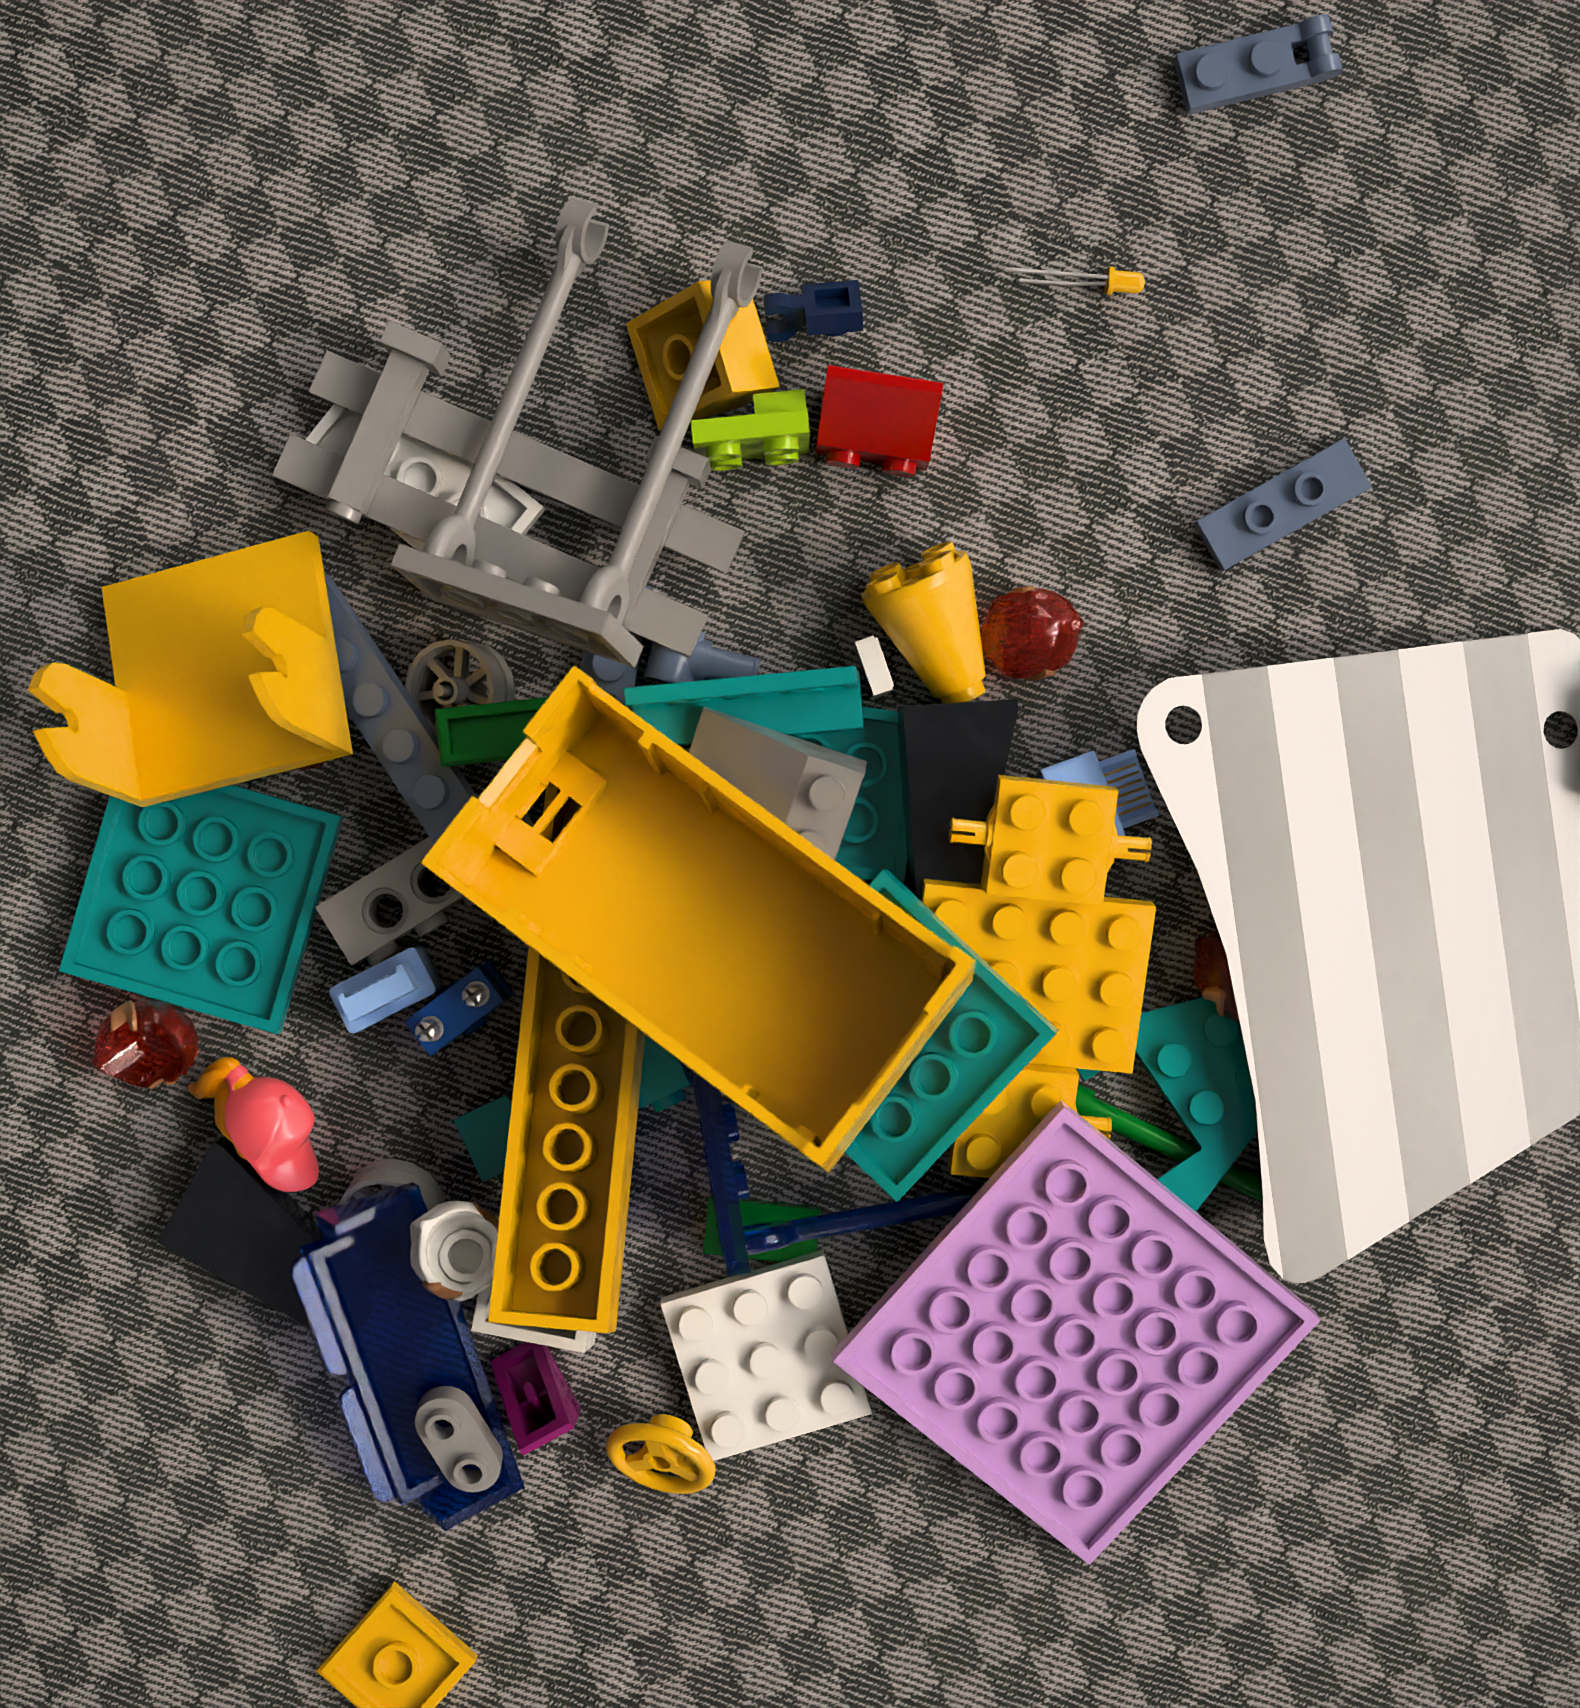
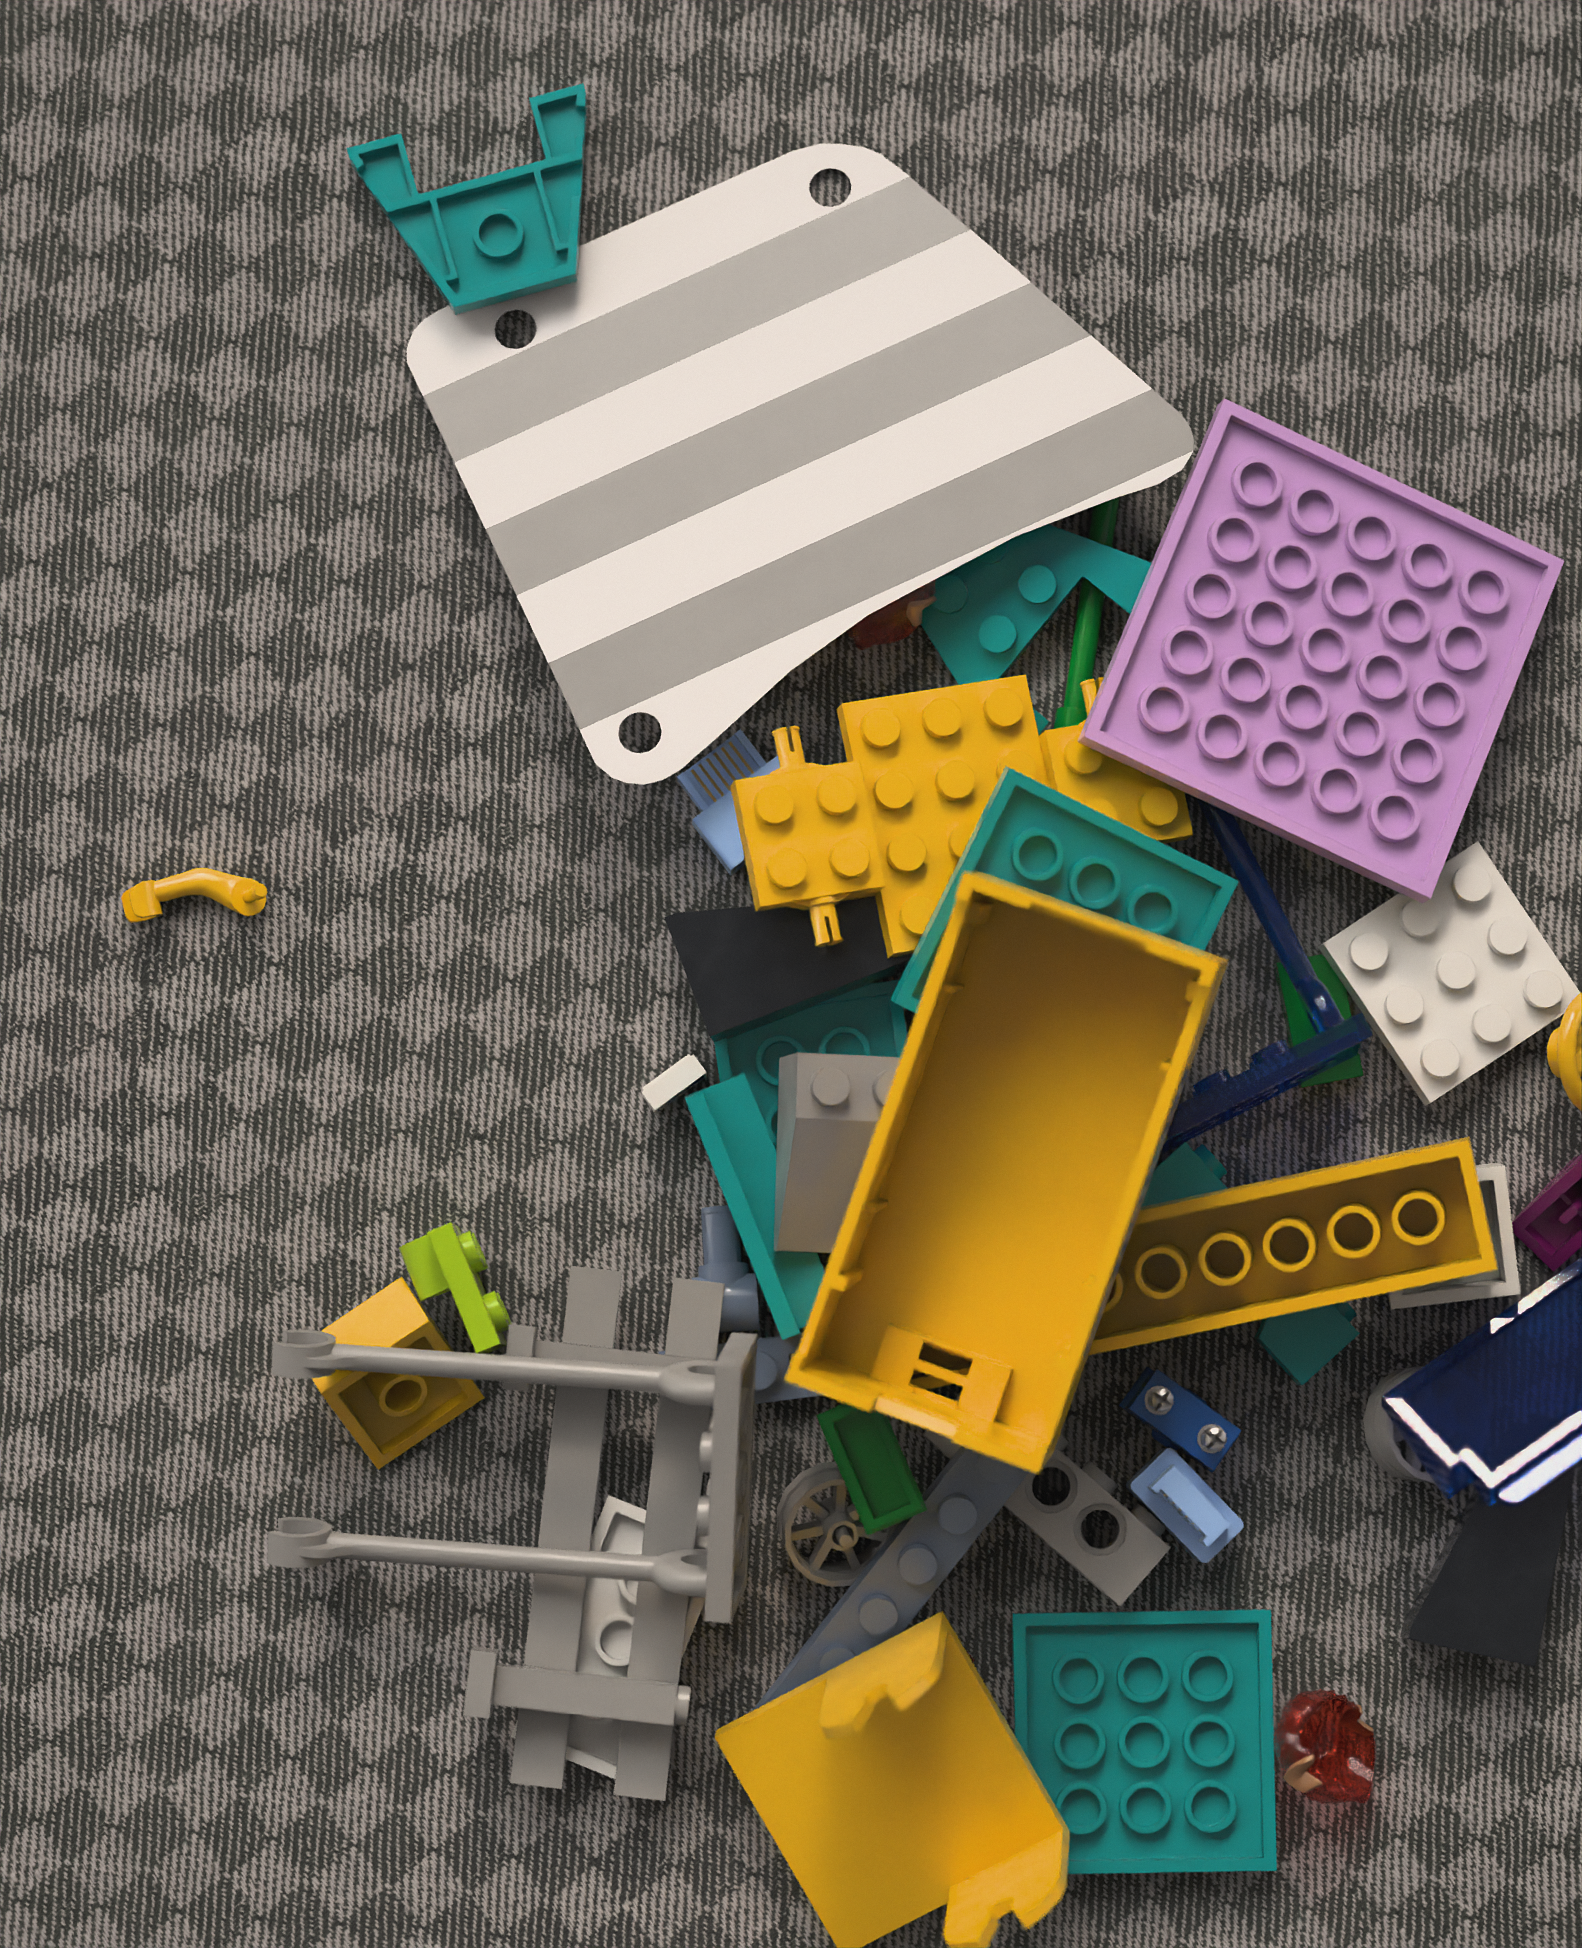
camera: 110 degrees left, 5 degrees down
(263, 1121) = (1367, 1594): coral hair -> none
(454, 1249) = (1435, 1331): white hair -> none
(823, 308) = (299, 1258): dark blue plate -> none
(878, 420) = (409, 1158): red slope -> none
(932, 620) = (603, 1035): yellow cone -> none
(1030, 633) = (584, 925): clear red hair -> none
(1114, 280) = (174, 952): piece -> none
(1147, 349) = (232, 891): none -> yellow piece
(1282, 505) = (363, 697): sand blue plate -> none

